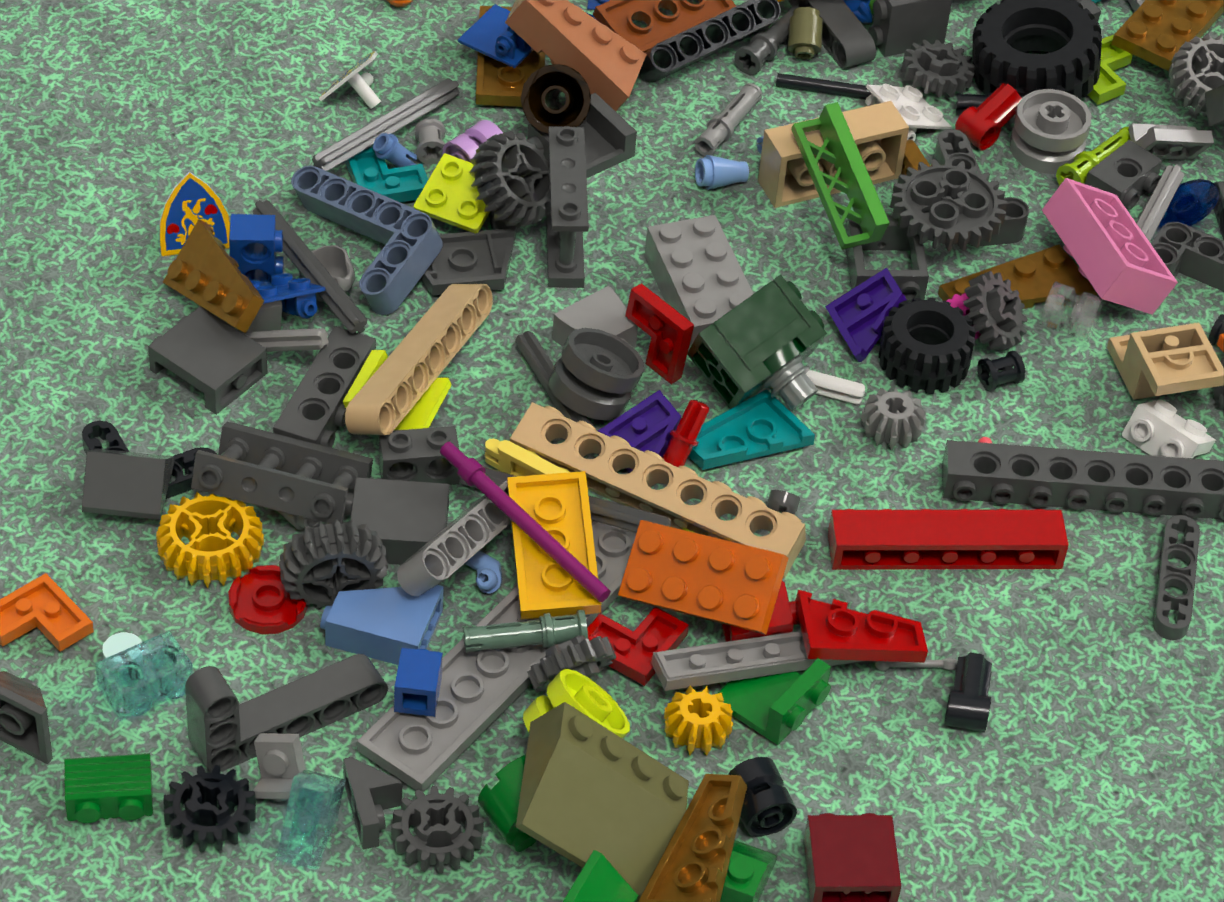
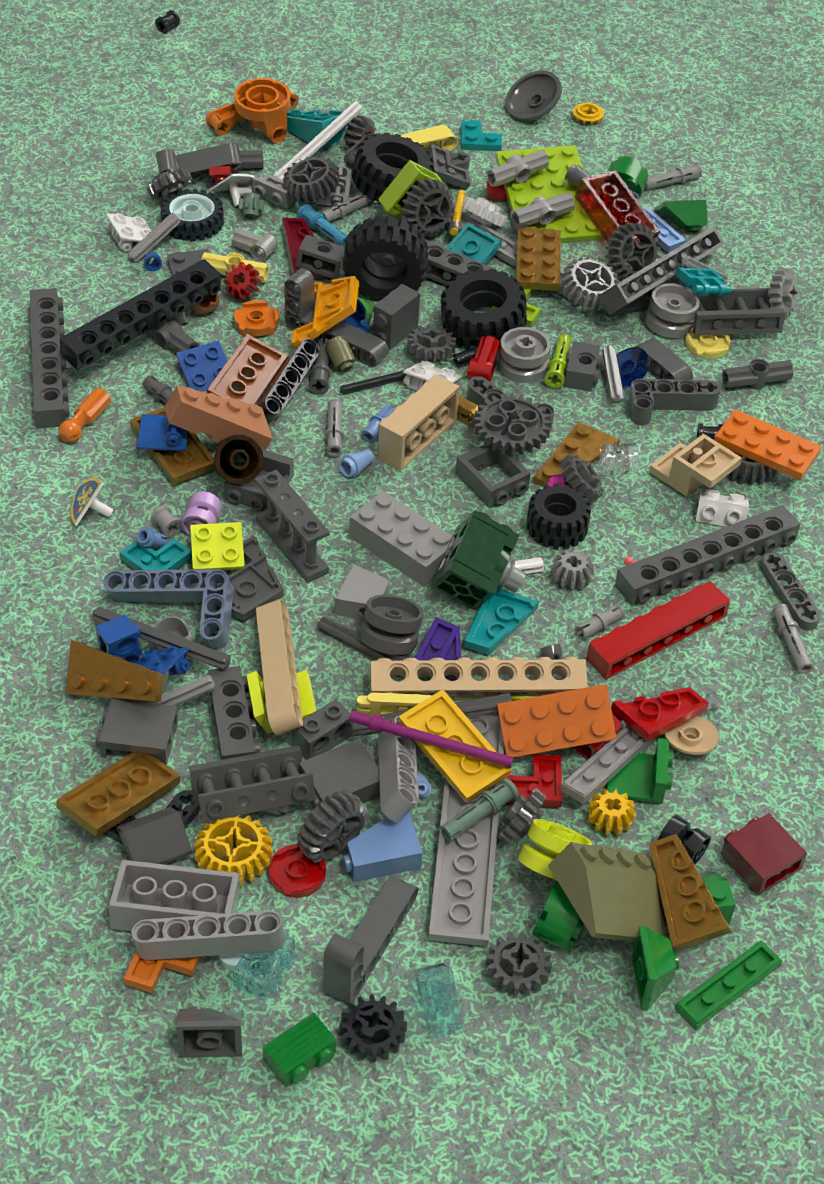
camera: 30 degrees left, 0 degrees up
(95, 609) = (189, 935): none -> light grey beam
(98, 558) = (169, 891): none -> light grey brick
(128, 412) = (117, 792): none -> pearl gold plate
(186, 204) = (55, 641): shield -> none
(279, 761) = (397, 977): light grey bracket -> none
(368, 795) = (462, 962): dark grey slope -> none
(388, 123) = (133, 523): axle -> none
(418, 682) = (442, 875): blue brick -> none
(512, 179) = (251, 522): dark grey gear -> none
(668, 332) = (413, 574): red plate -> none
(686, 433) = (471, 636): red axle -> none
(852, 173) = (450, 430): bright green fence -> none
(863, 311) = (511, 508): dark purple wing -> none
(879, 496) = (599, 622): none -> light grey pin
(881, 684) = (694, 736): none -> tan dish
(969, 699) = (744, 722): black piece -> none
(992, 367) = (606, 511): black bush -> none
(1109, 246) = (614, 410): bright pink brick -> none
(1129, 622) = (782, 617): none -> light grey pin
(1171, 140) = (592, 332): light grey bracket -> none

